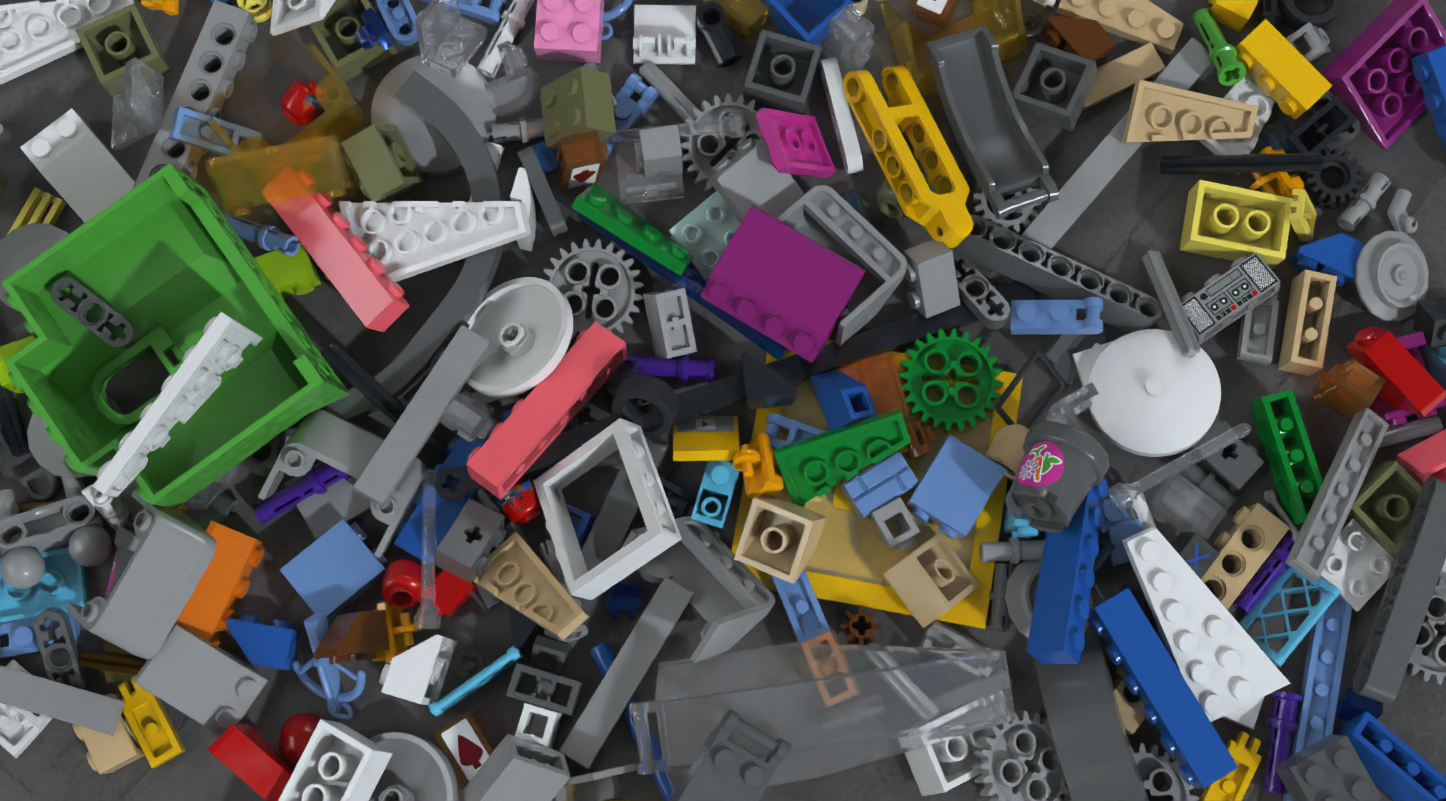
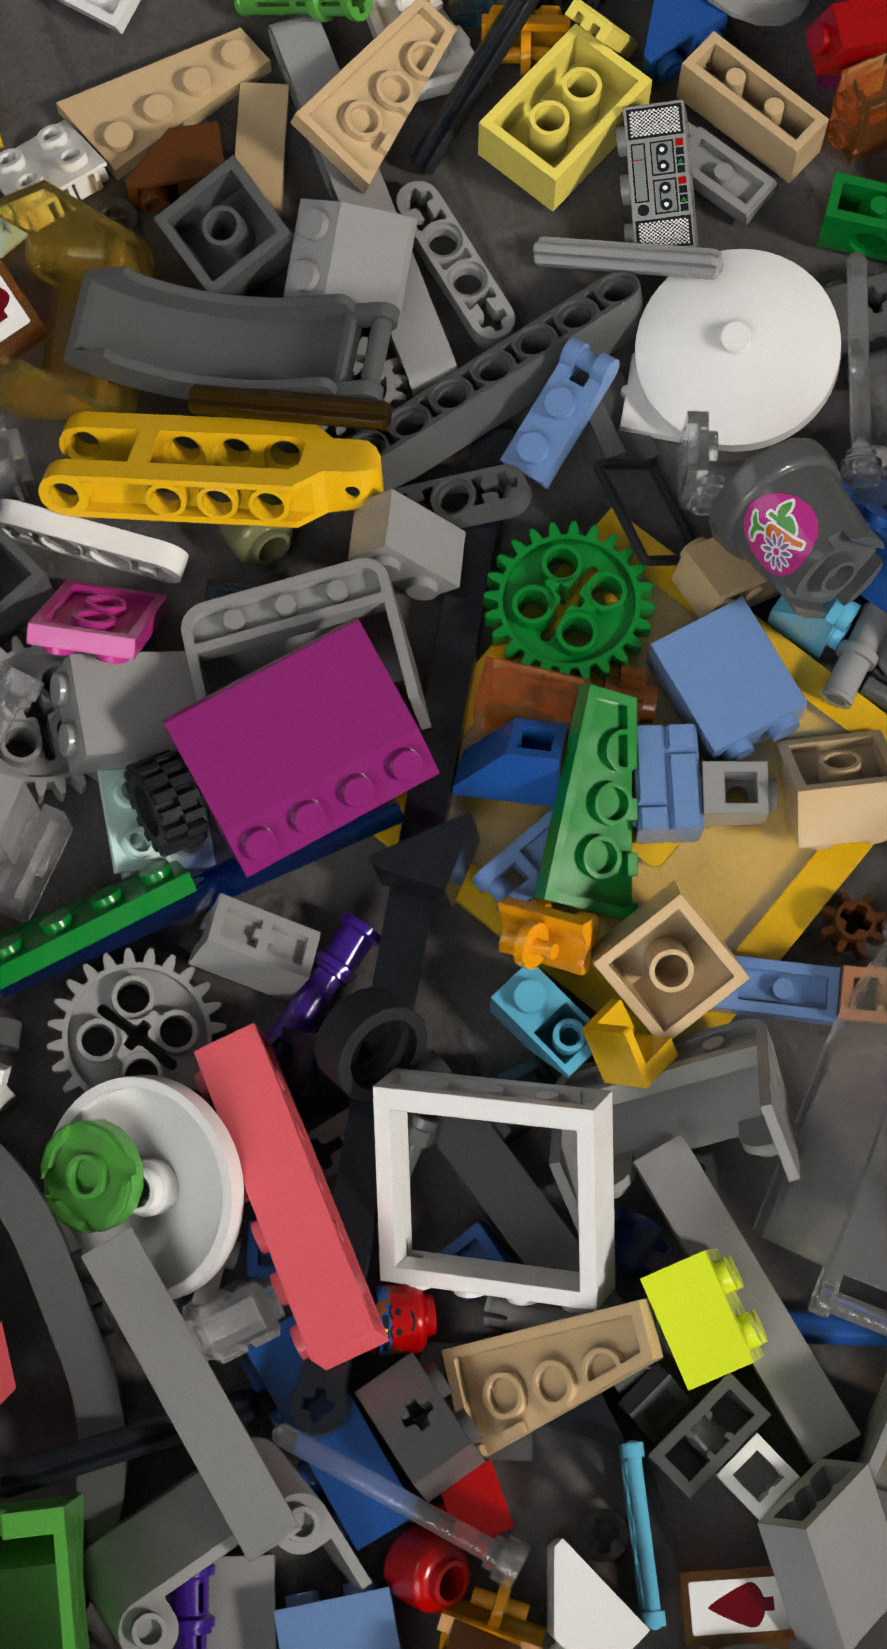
camera: 55 degrees left, 5 degrees down
(506, 308) = (92, 1175): none -> bright green tile
(598, 653) = (705, 1317): none -> neon yellow brick
(706, 438) = (463, 988): yellow tile -> none
(715, 233) = (166, 803): none -> black tyre
(718, 539) = (622, 1053): none -> yellow panel
(969, 173) = (290, 407): none -> dark brown axle
(1076, 156) = (350, 252): none -> light grey slope
(1116, 216) = (460, 262): none -> light grey beam

